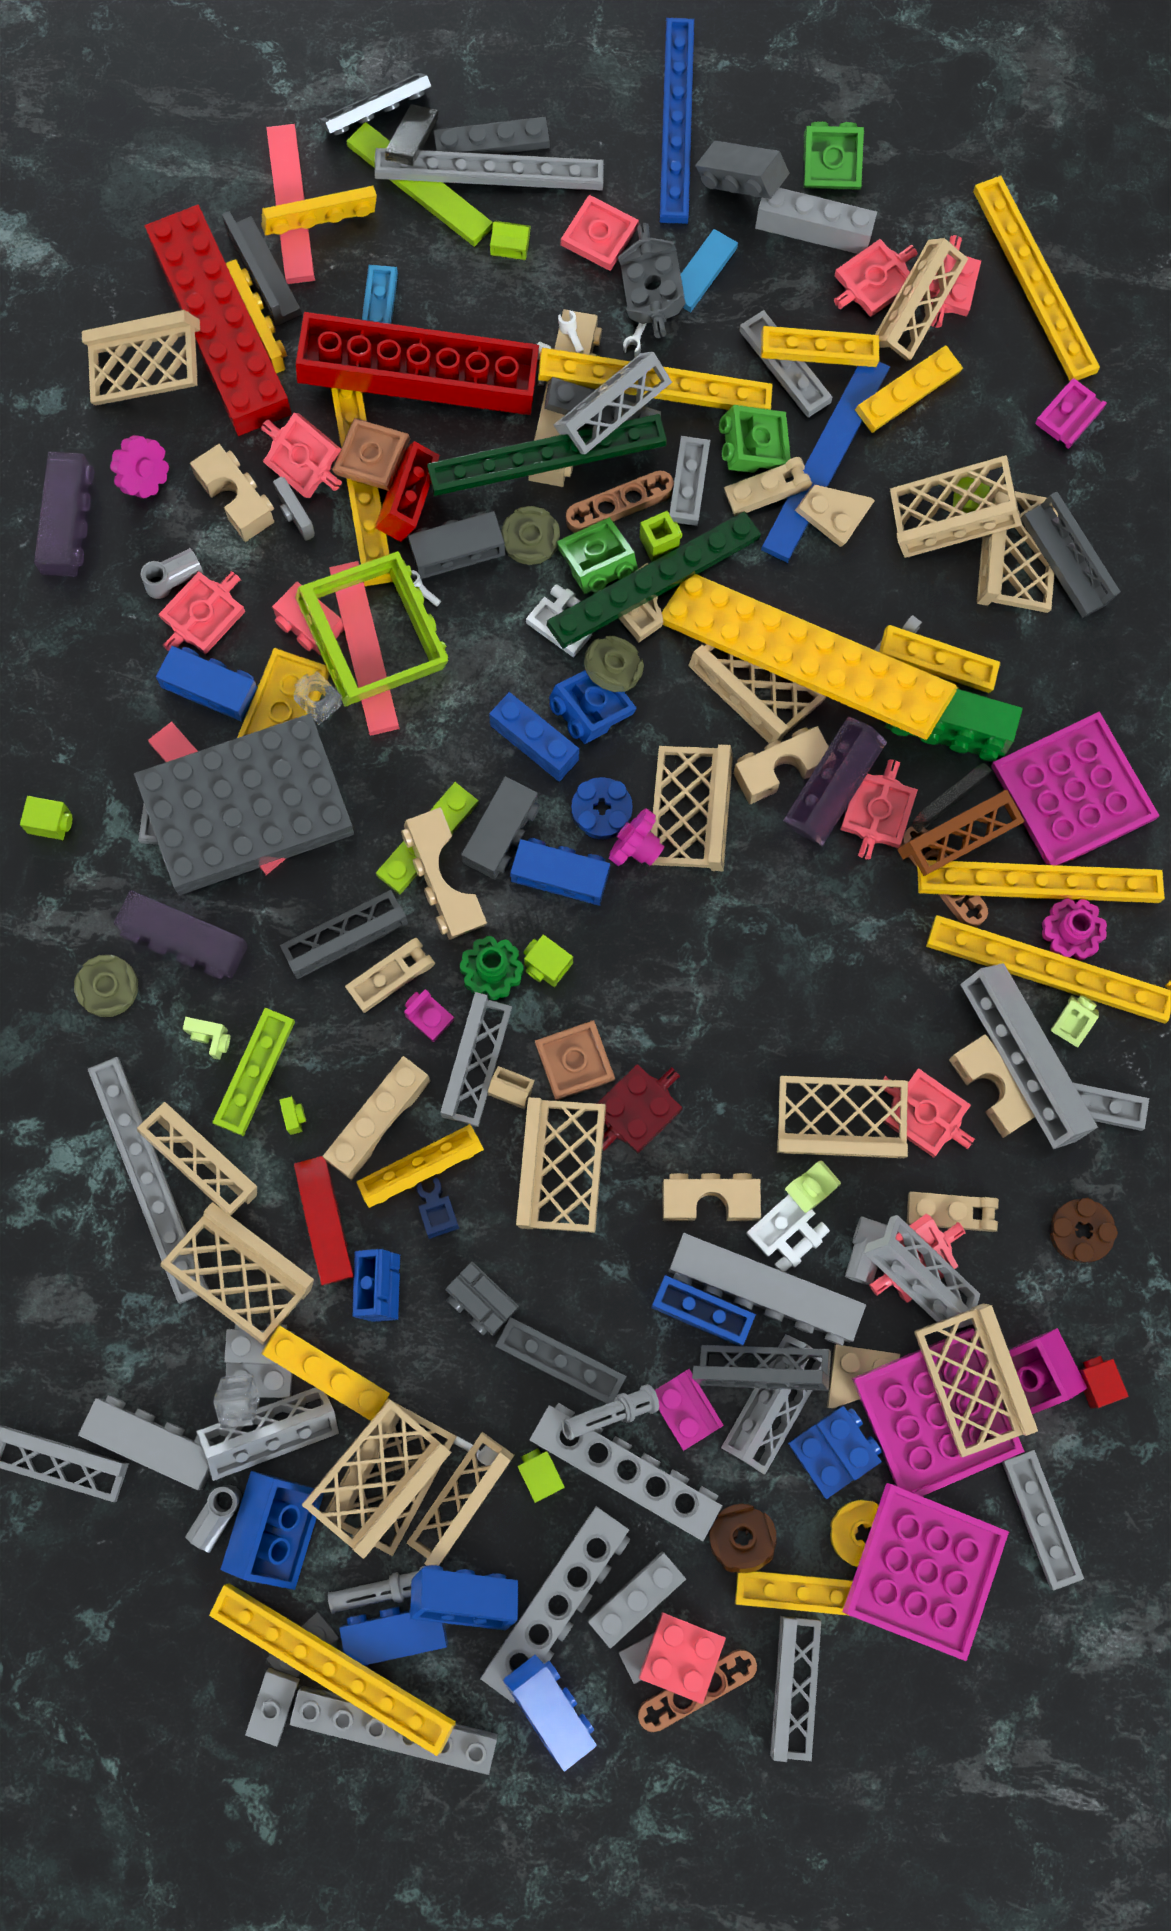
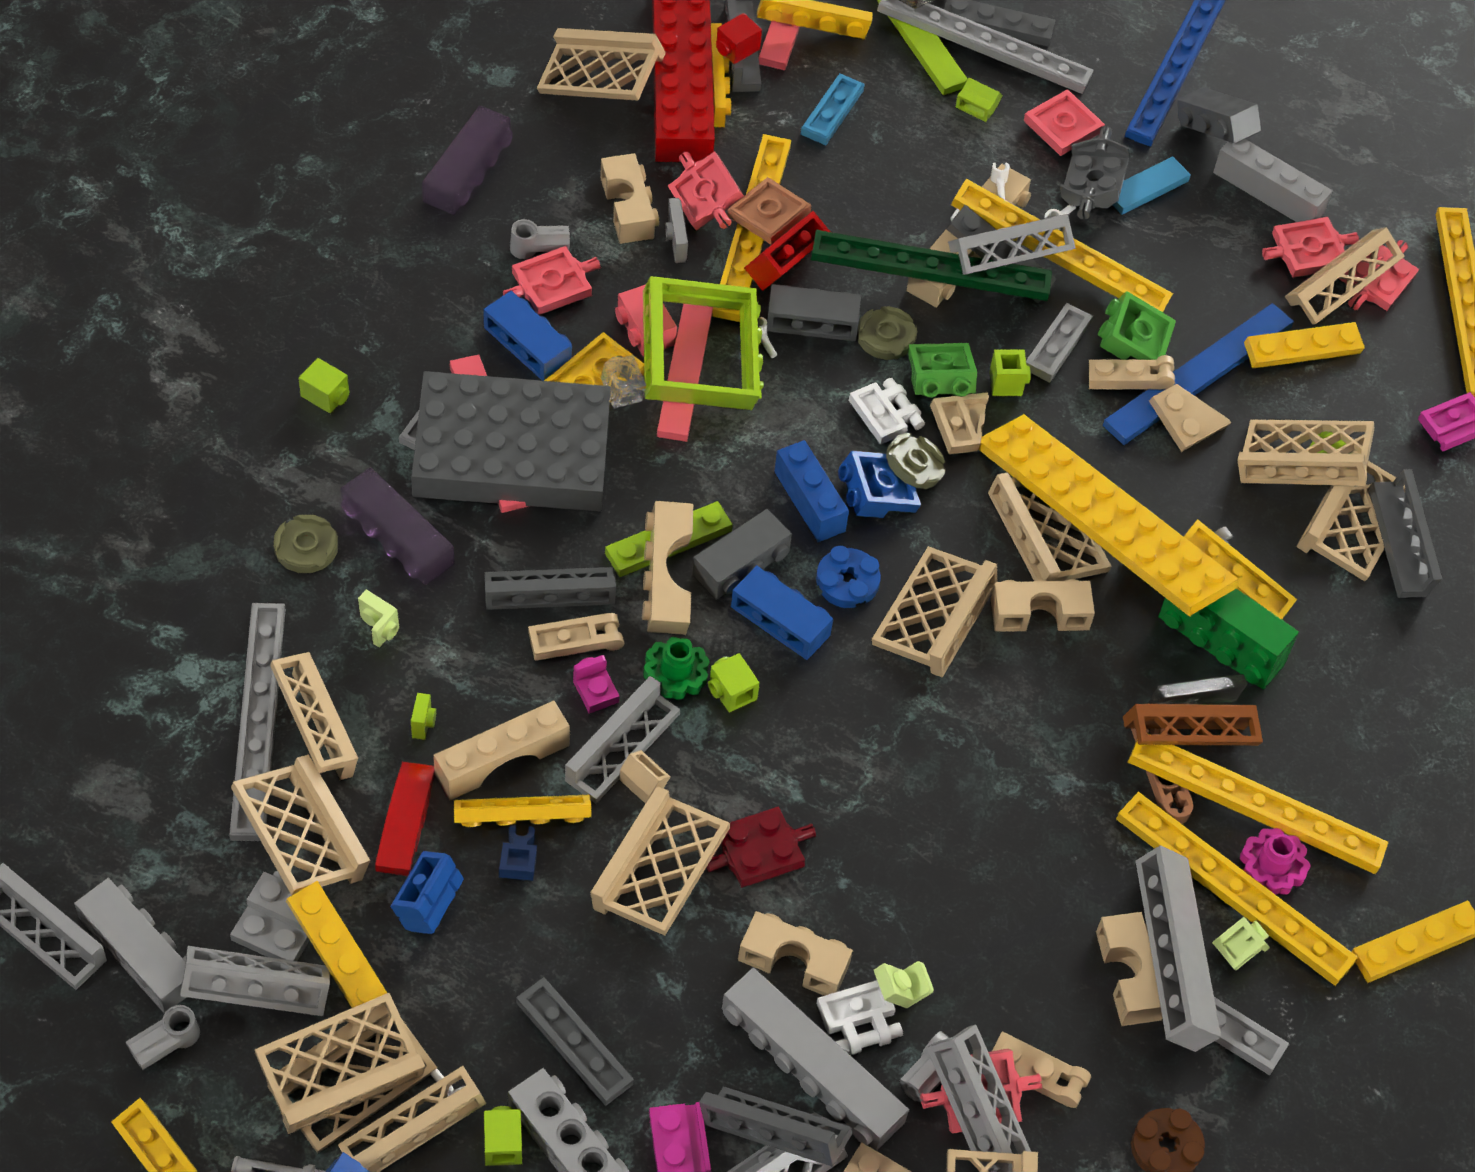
camera: 20 degrees right, 20 degrees down
(139, 466) = (554, 145): dark pink plant -> none
(236, 1401) = (240, 935): clear brick -> none
(253, 1072) = (405, 667): lime plate -> none
(262, 275) = (738, 38): none -> red brick
(271, 1532) = (211, 1074): blue slope -> none
(416, 363) = (846, 156): red brick -> none
(481, 1299) = (523, 950): dark grey brick -> none
(574, 1060) = (718, 779): nougat plate -> none
(617, 498) = (983, 331): nougat beam -> none
(623, 1408) = (618, 1102): light grey pin -> none
(637, 841) = (868, 610): dark pink plant -> none
(653, 580) = (985, 405): dark green plate -> none
(703, 1311) = (739, 1048): blue brick -> none
(793, 375) = (1193, 284): light grey plate -> none
(819, 346) = (1231, 277): yellow plate -> none
(833, 156) = (1311, 138): bright green plate -> none
(835, 780) = (1086, 632): clear purple brick -> none
(839, 1144) = (956, 961): tan fence -> none
(880, 810) = (1120, 679): coral plate -> none
(931, 1114) = (1050, 966): coral plate -> none
(1075, 790) = (1328, 739): dark pink plate -> none

